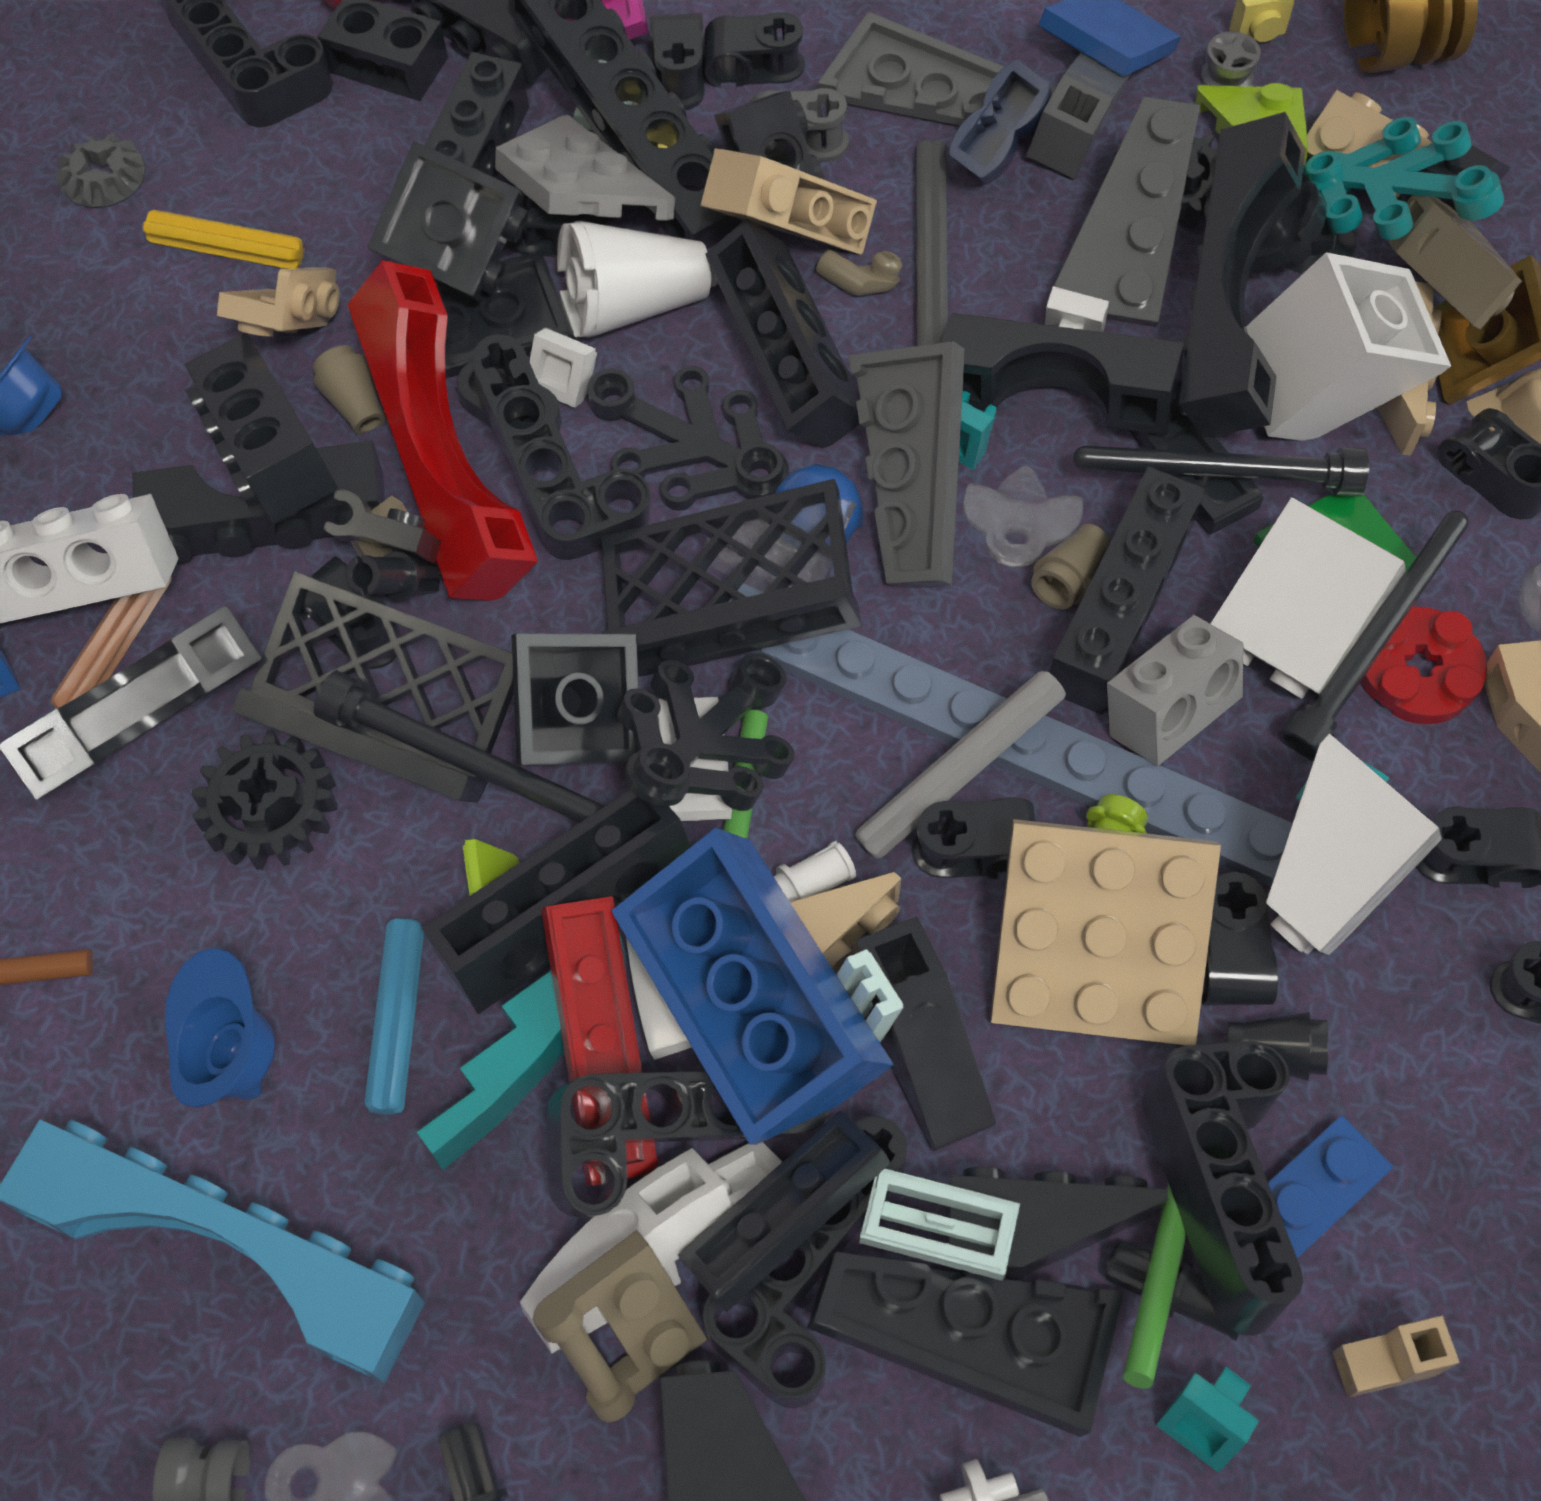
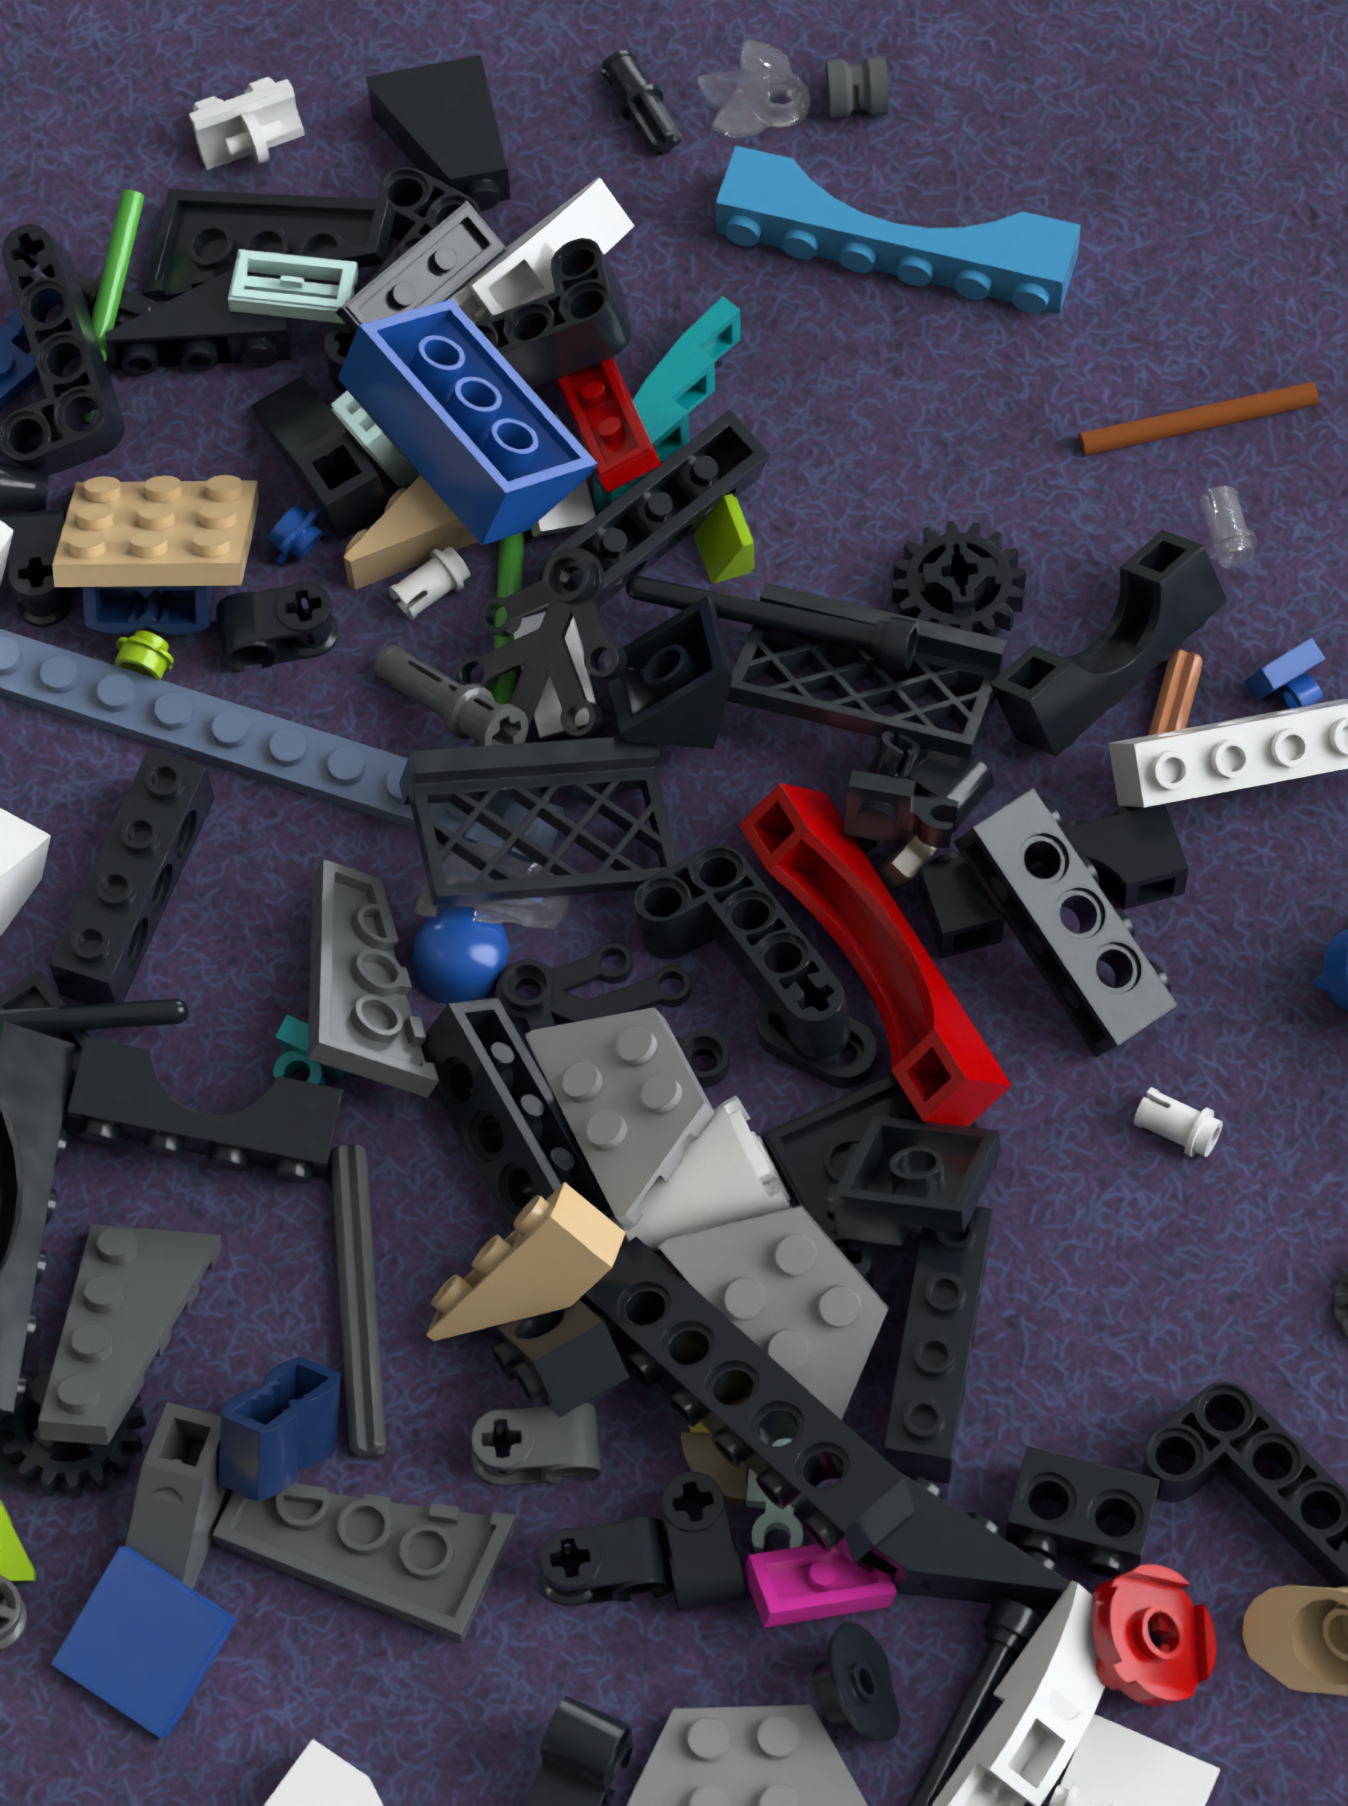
camera: 175 degrees right, 0 degrees up
(202, 298) = (1179, 1122): none -> white pin
(214, 1033) = (937, 370): blue piece -> none
(223, 239) = (1203, 1219): yellow axle -> none
(300, 301) = (1095, 1092): tan bracket -> none
(348, 386) = (1005, 1032): dark tan cone -> none
(394, 1017) = (792, 430): dark azure axle -> none
(562, 365) = (765, 1079): white tile -> none
(640, 1310) = (552, 194): dark tan plate -> none
(685, 321) = (624, 1100): none -> light grey wing
(852, 780) = (466, 709): none -> dark grey pin
(861, 280) = (433, 1253): dark tan arm -> none
(955, 940) = (296, 533): none -> blue plate
(961, 763) = (293, 682): light grey axle -> none
(1021, 510) = (243, 982): clear plate -> none
(1068, 569) = (189, 912): dark tan cone -> none
(1075, 310) = (186, 1201): white tile -> none
(1175, 689) = (85, 770): light grey brick -> none
(1209, 1418) = (73, 214): teal tile -> none

